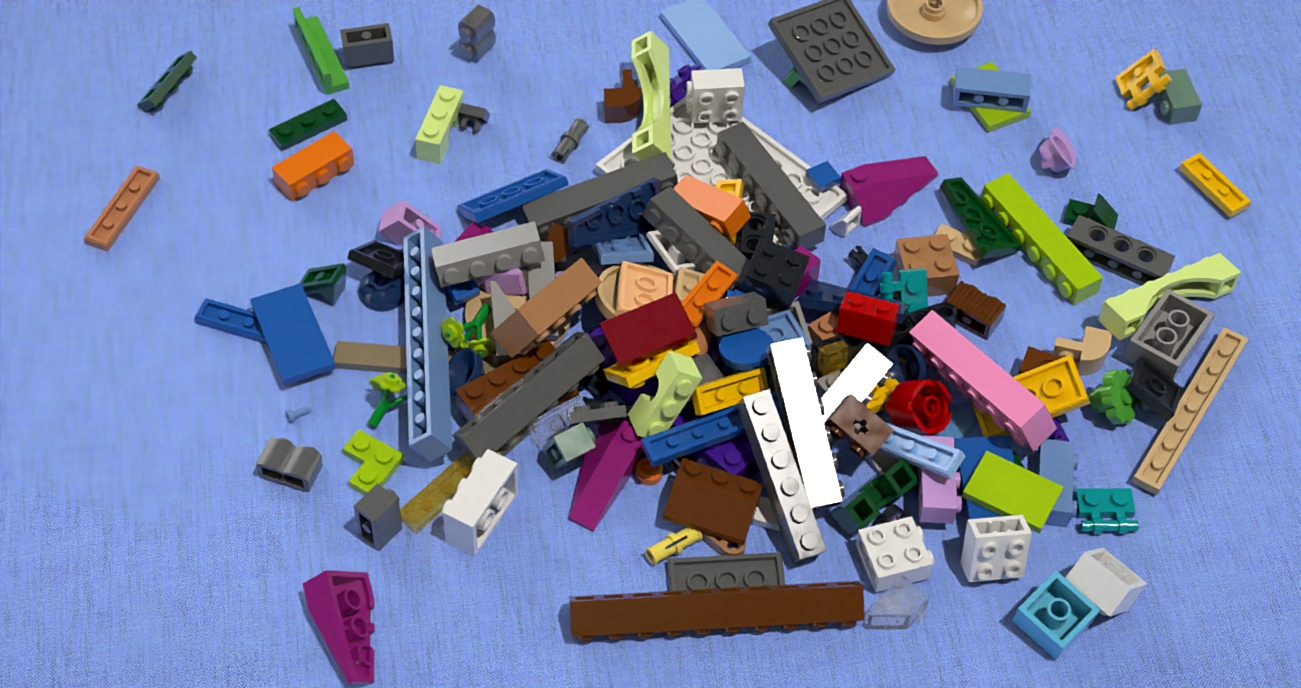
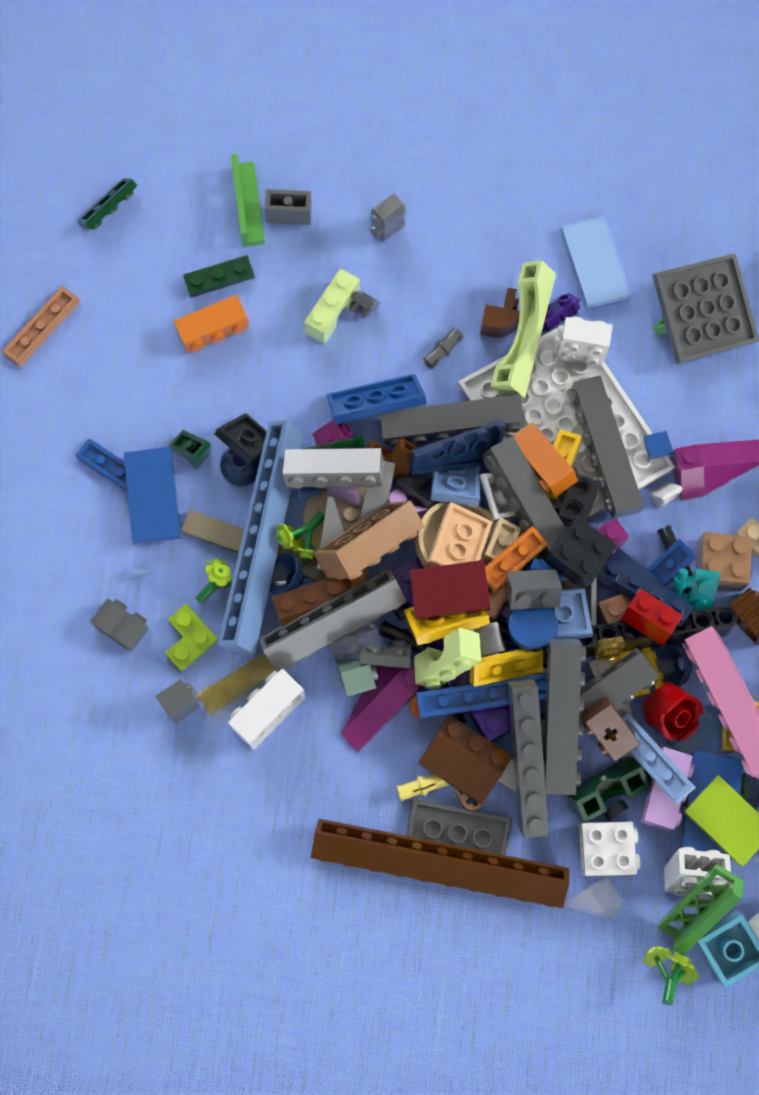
camera: 15 degrees right, 20 degrees up
(342, 611) = (128, 785): magenta wedge -> none
(404, 219) = (277, 406): lavender slope -> none
(1013, 652) = (682, 970): none -> plant
(1020, 576) = (711, 912): none -> bright green fence

